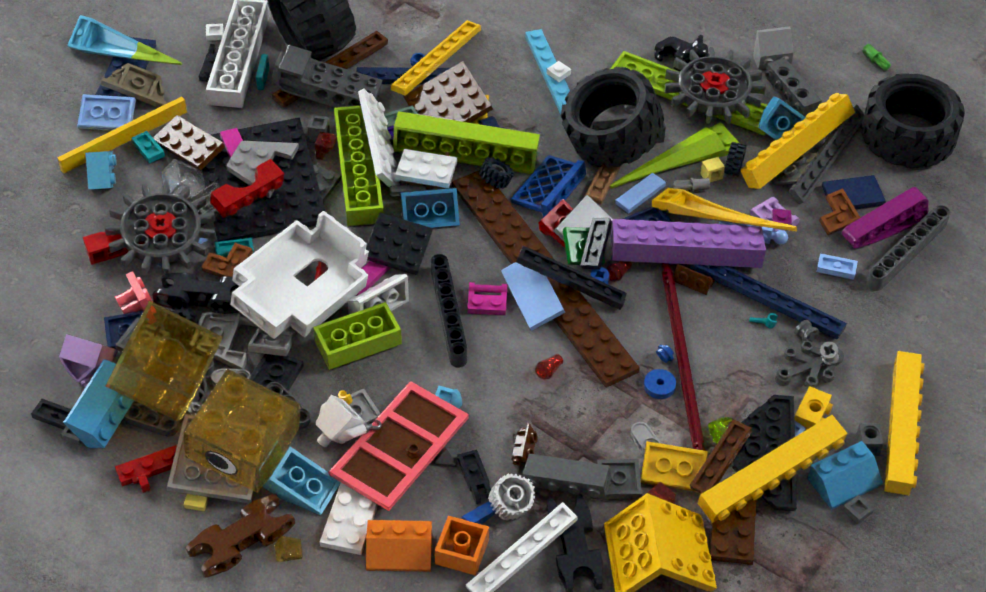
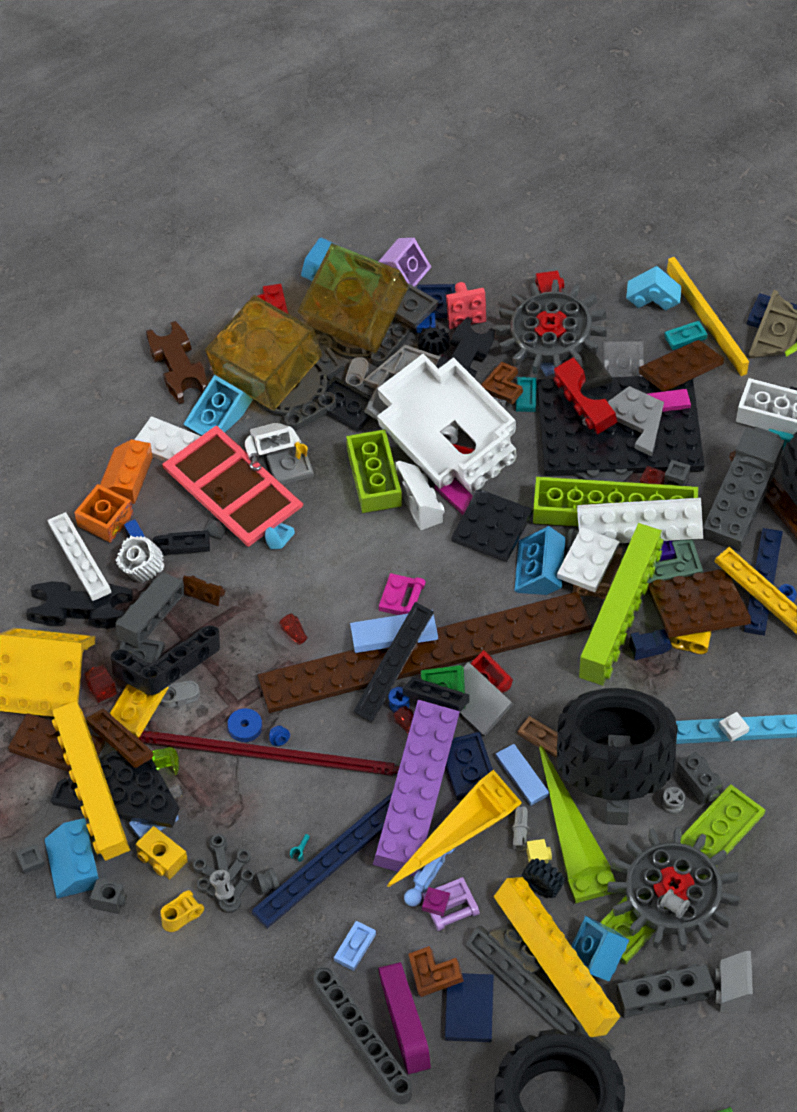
camera: 105 degrees right, 5 degrees up
(50, 413) = (356, 241): black plate -> none
(105, 112) = (743, 303): light blue tile -> none
(288, 549) = (154, 396): clear yellow slope -> none
(449, 311) = (377, 555): black beam -> none
(496, 172) = (566, 636): black bush -> none
(561, 189) = (542, 692): blue fence -> none
(632, 437) = (169, 668): none -> black beam
(680, 49) = (755, 876): black animal -> none
(692, 279) = (370, 798): reddish brown hinge -> none
(736, 72) = (674, 903): none -> light grey bush
(860, 385) = (184, 908): none -> yellow piece
(903, 424) = (120, 938): yellow brick -> none

